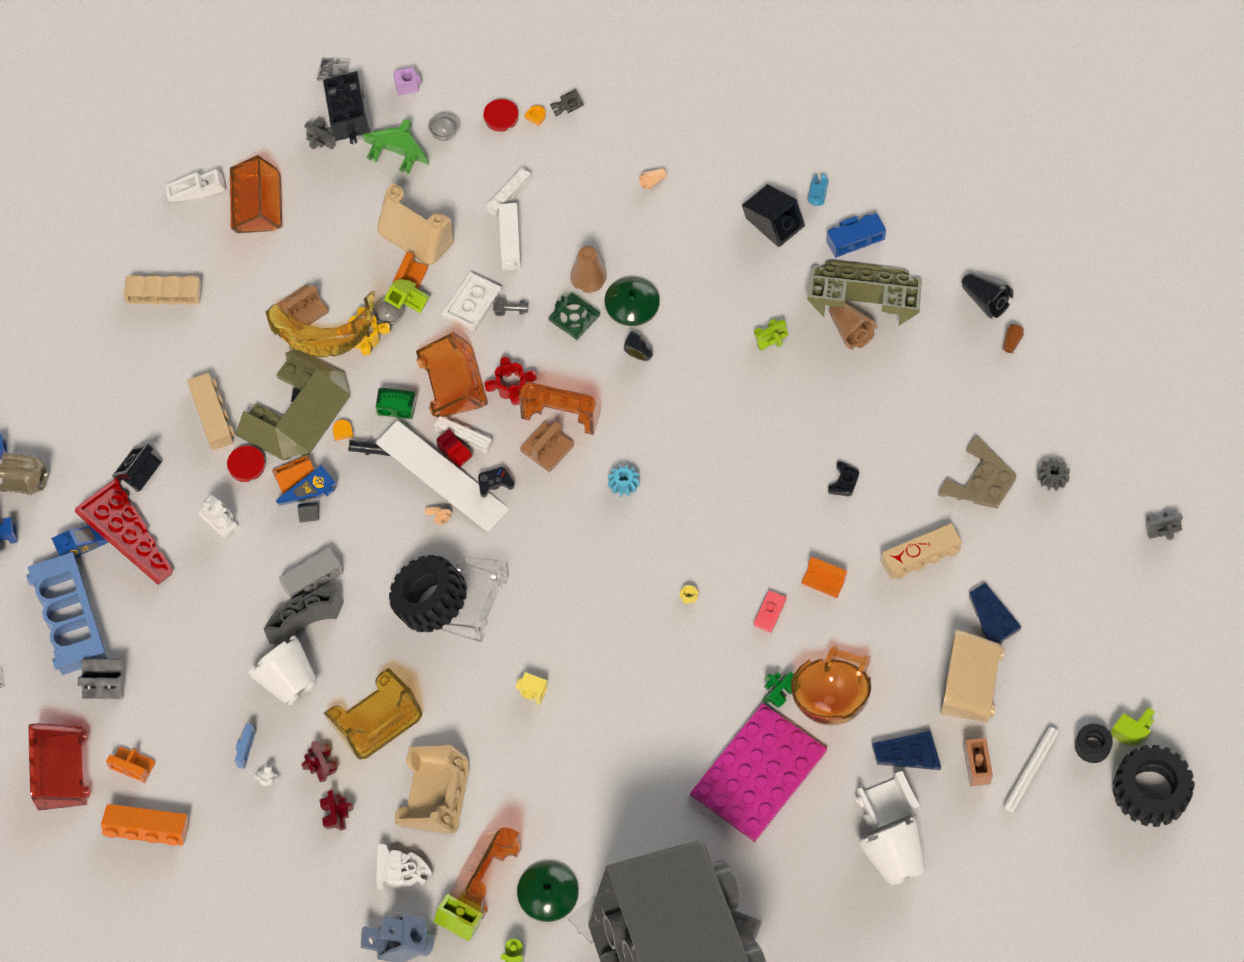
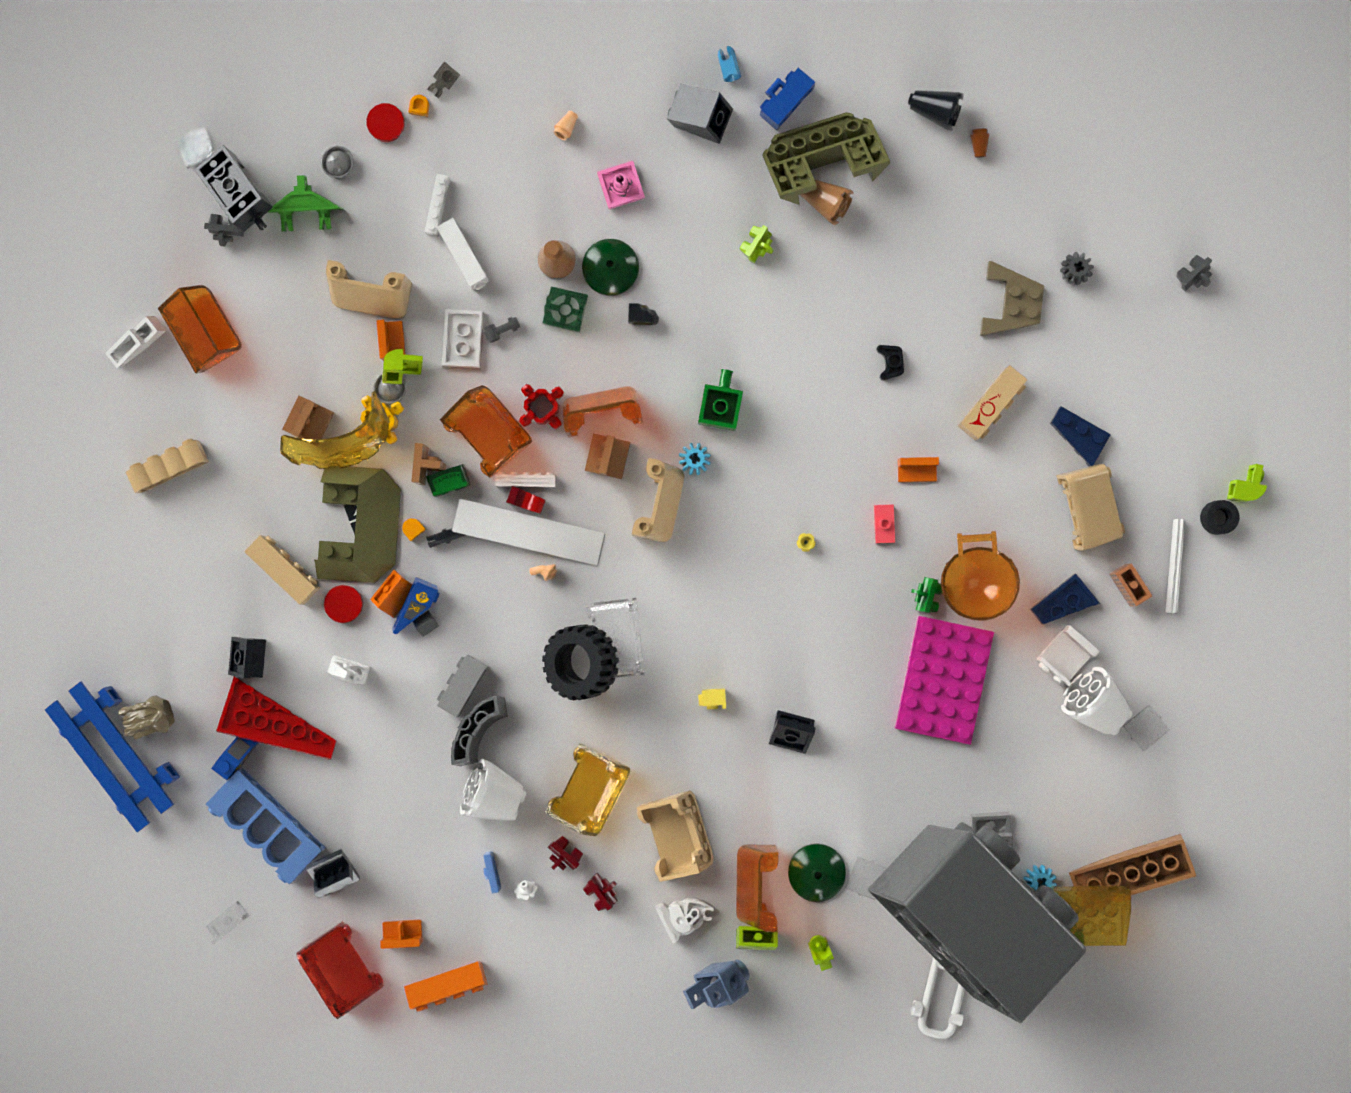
camera: 25 degrees left, 25 degrees up
(381, 377) = (423, 462): none -> medium nougat bracket
(406, 81) = (268, 124): lavender brick -> none
(493, 480) = (577, 513): black piece -> none
(566, 512) = (666, 503): none -> tan windscreen
(589, 749) = (792, 732): none -> black bracket
(670, 445) = (721, 404): none -> green brick
(675, 235) = (618, 178): none -> bright pink plate
(935, 906) = (1146, 728): none -> clear piece
(1160, 762) = (1313, 530): black tyre -> none

